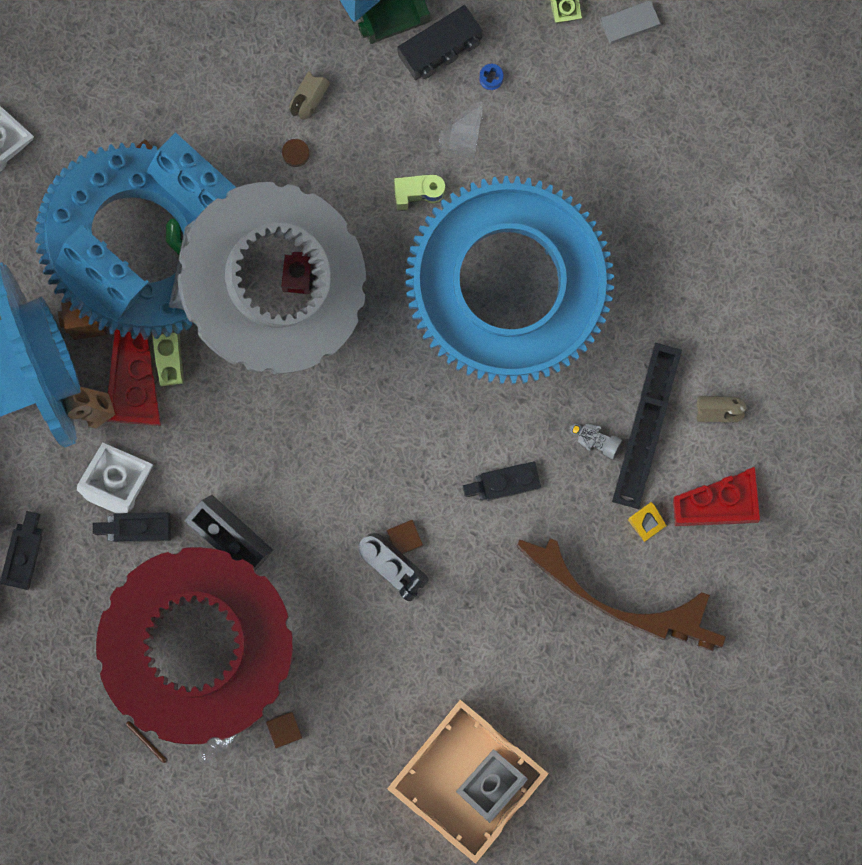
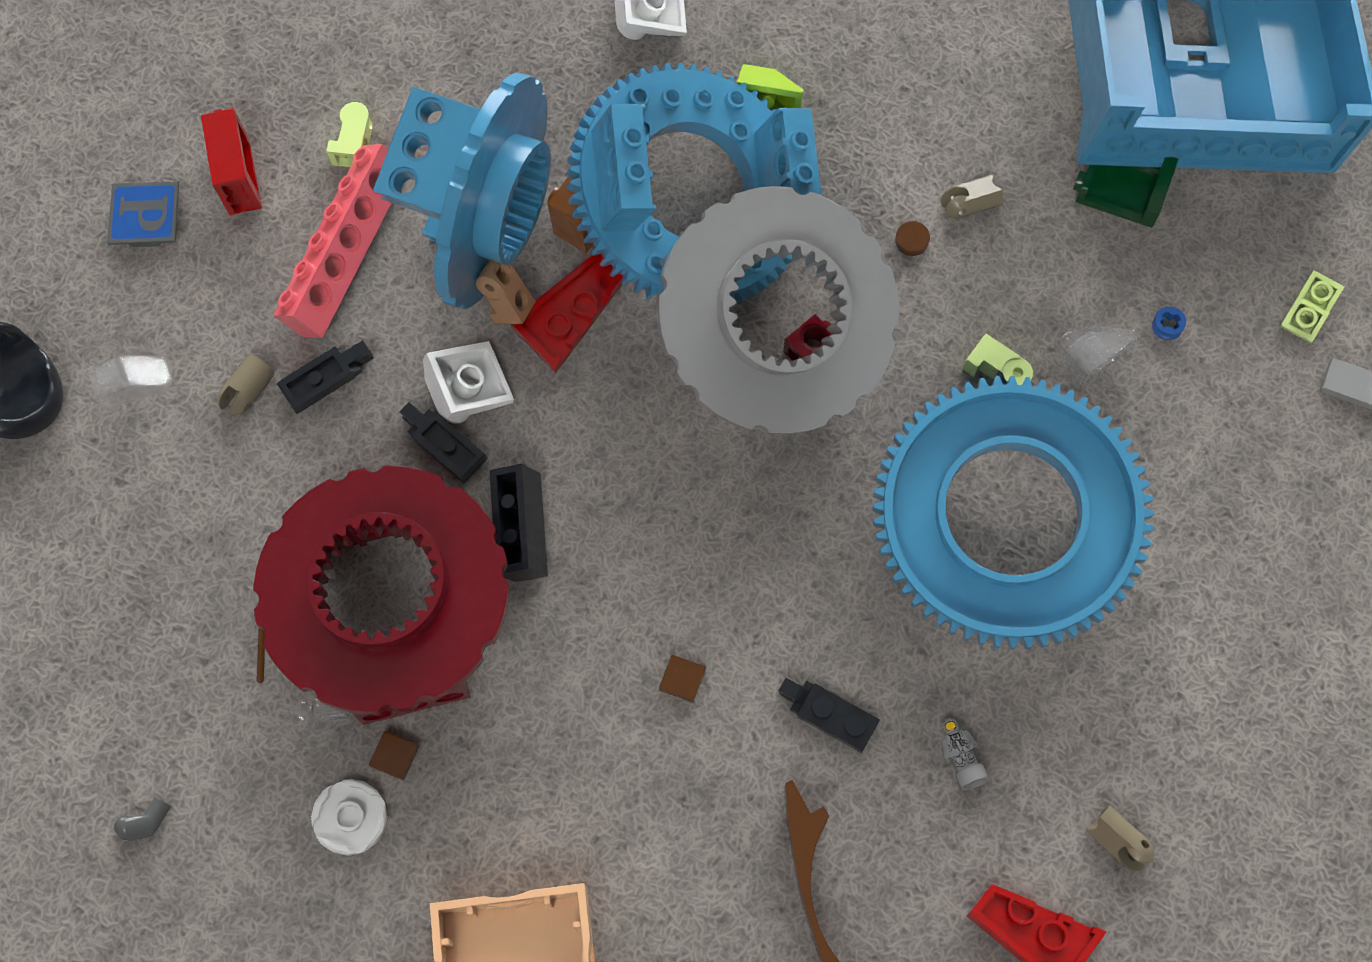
camera: 45 degrees right, 10 degrees down
(126, 131) = (772, 86): none -> lime slope
(168, 359) = (619, 318): yellowish green leg -> none
(297, 779) = (359, 826): none -> white tile
(392, 565) = (645, 693): plate -> none
(440, 43) = (1145, 251): black brick -> none
(647, 425) = (1028, 787): black slope -> none
(647, 521) = (941, 884): yellow slope -> none

